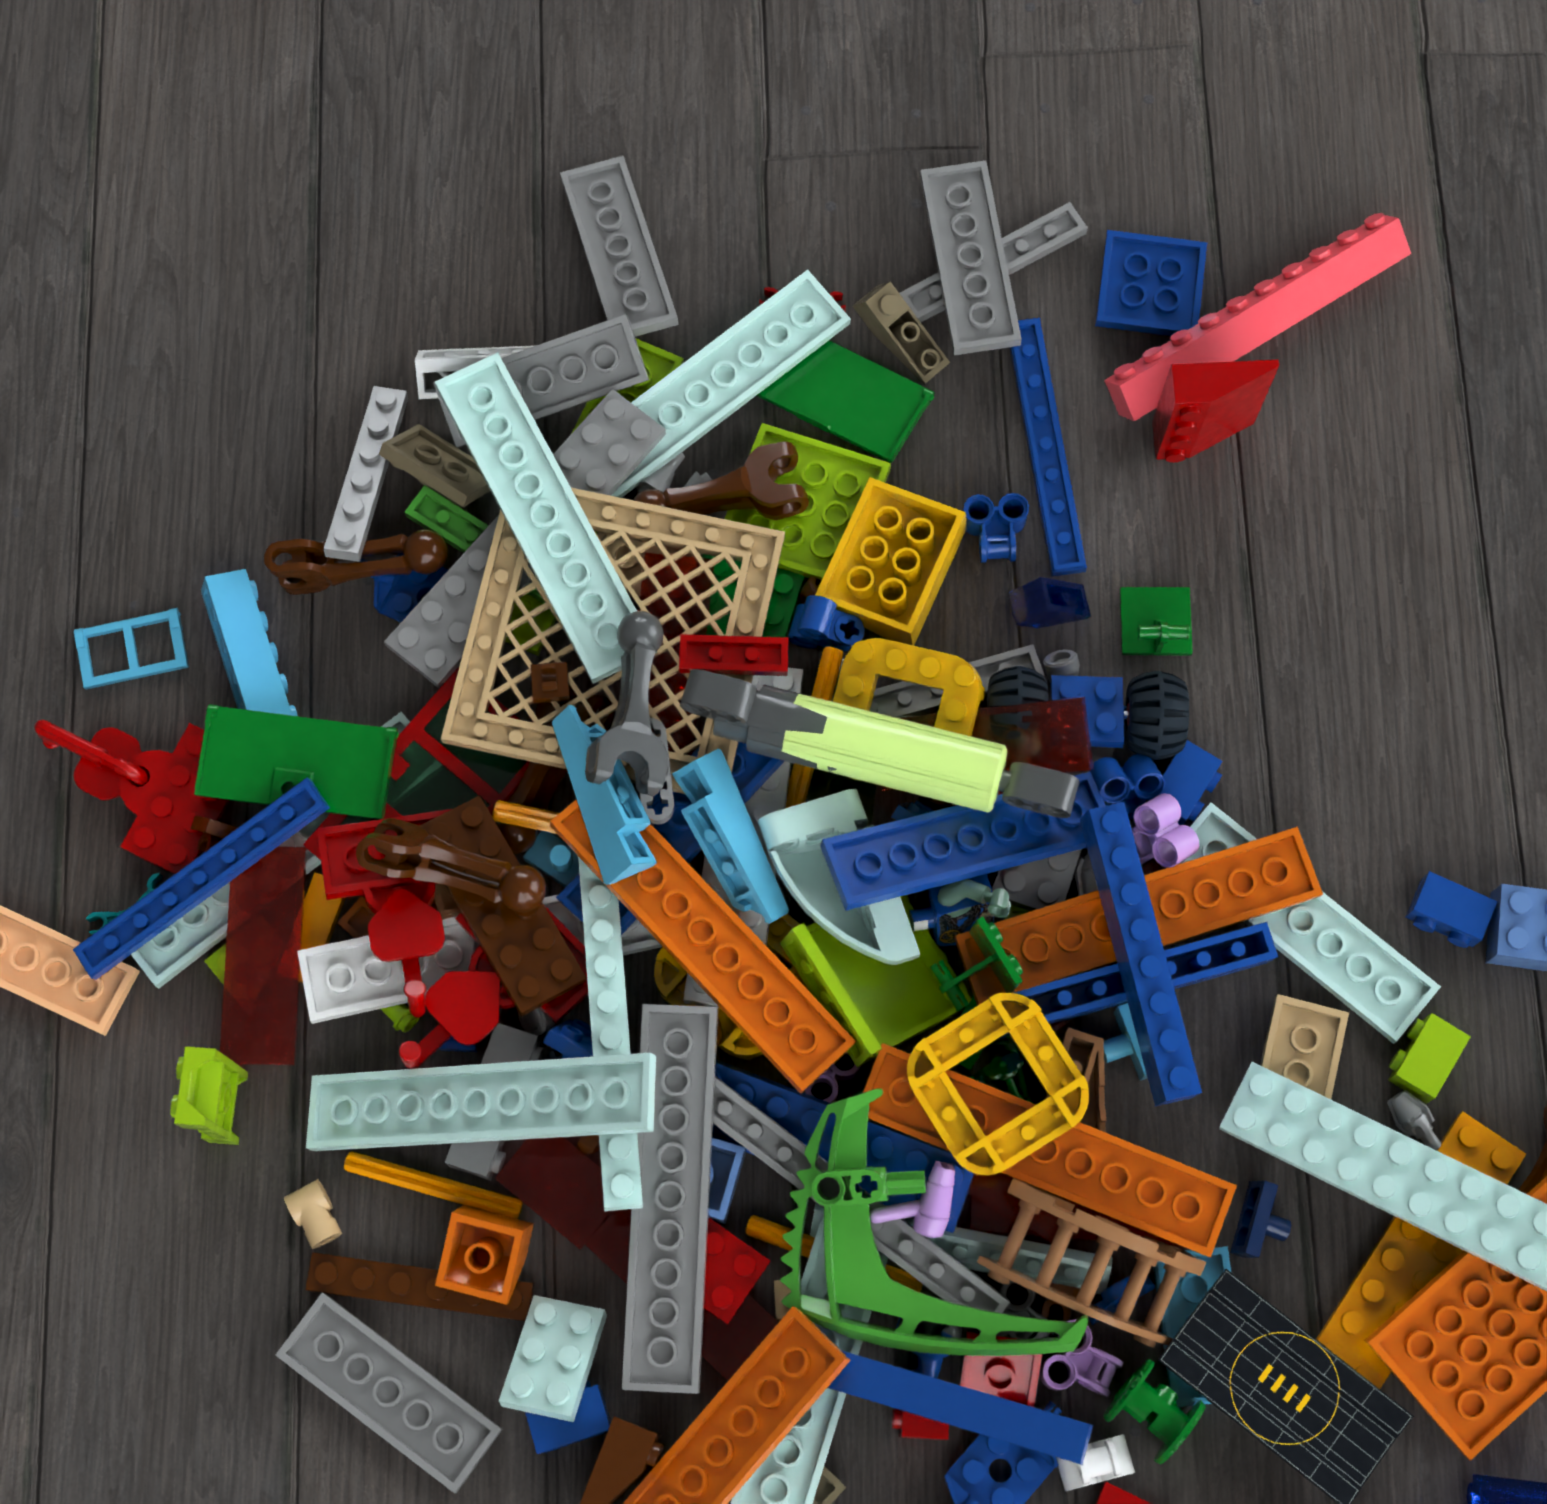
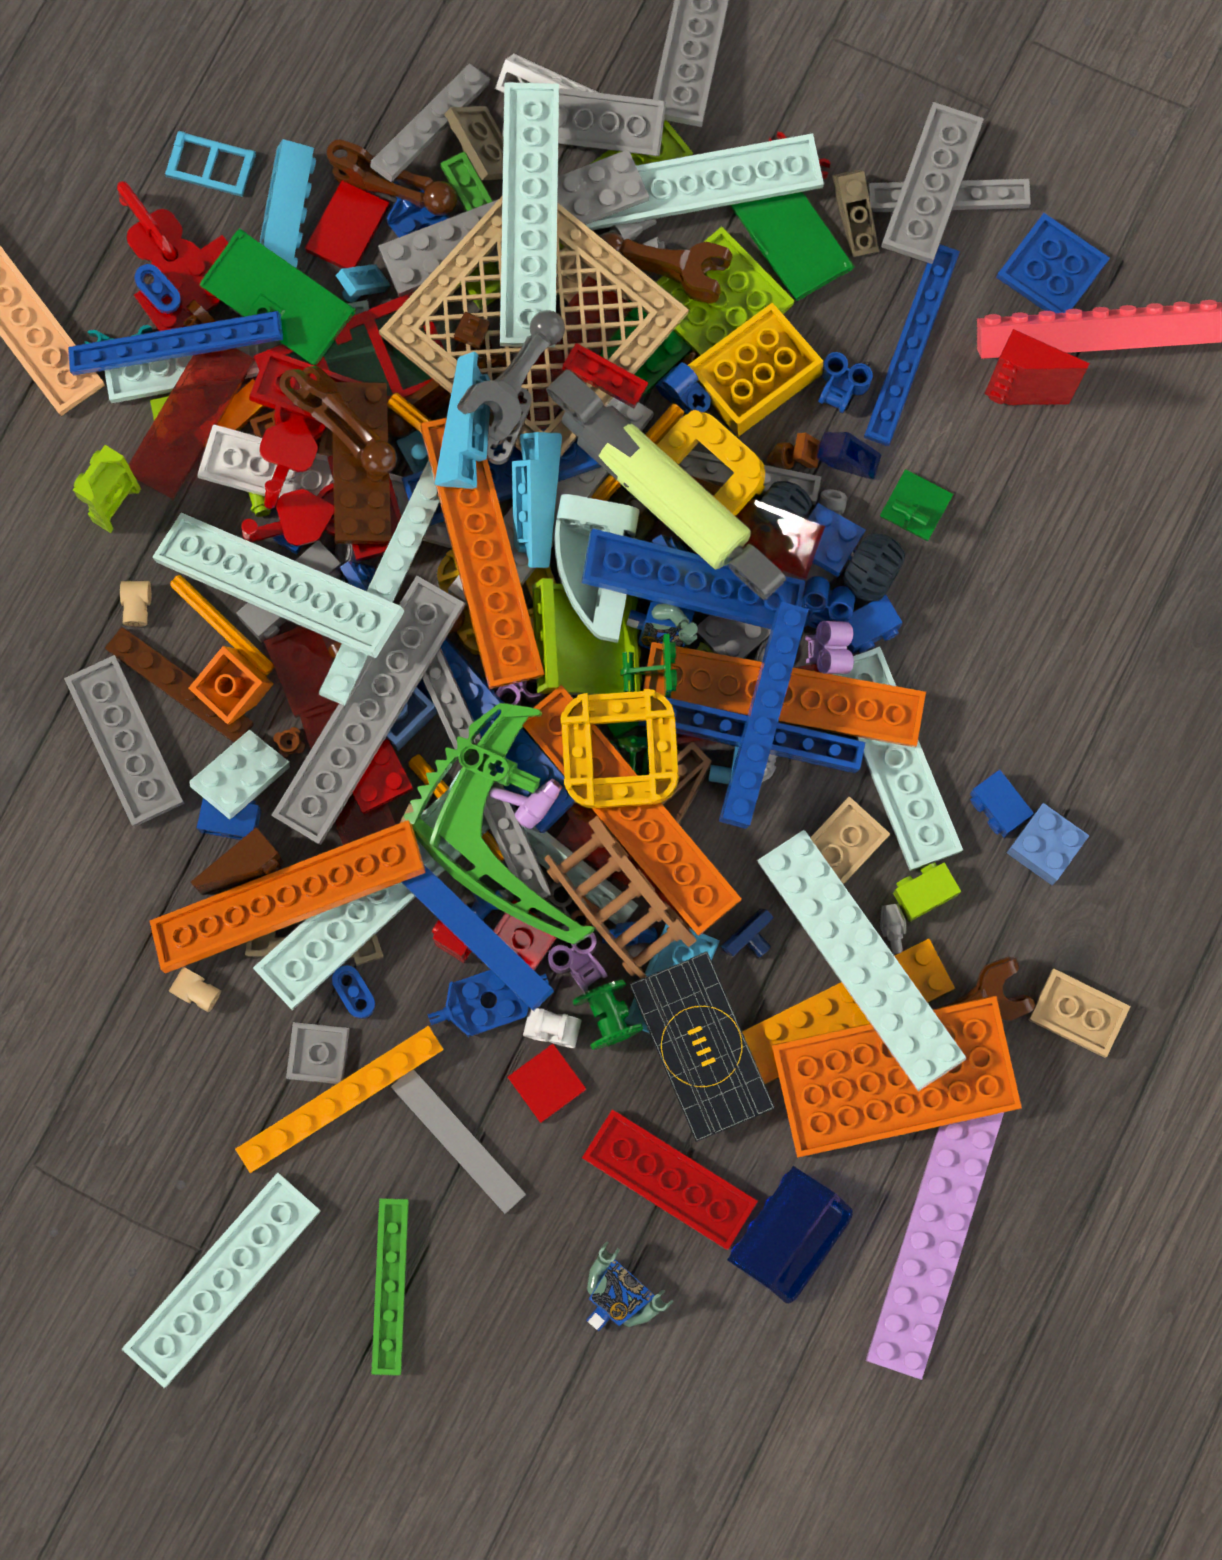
camera: 25 degrees right, 5 degrees up
(147, 825) = (158, 289): none -> blue plate
(331, 639) = (347, 226): none -> red tile
(384, 693) = (362, 281): none -> medium azure tile
(590, 1273) = (281, 739): none -> dark orange plate
(977, 642) = (782, 456): none -> reddish brown tile
(999, 623) = (806, 450): none -> dark orange plate

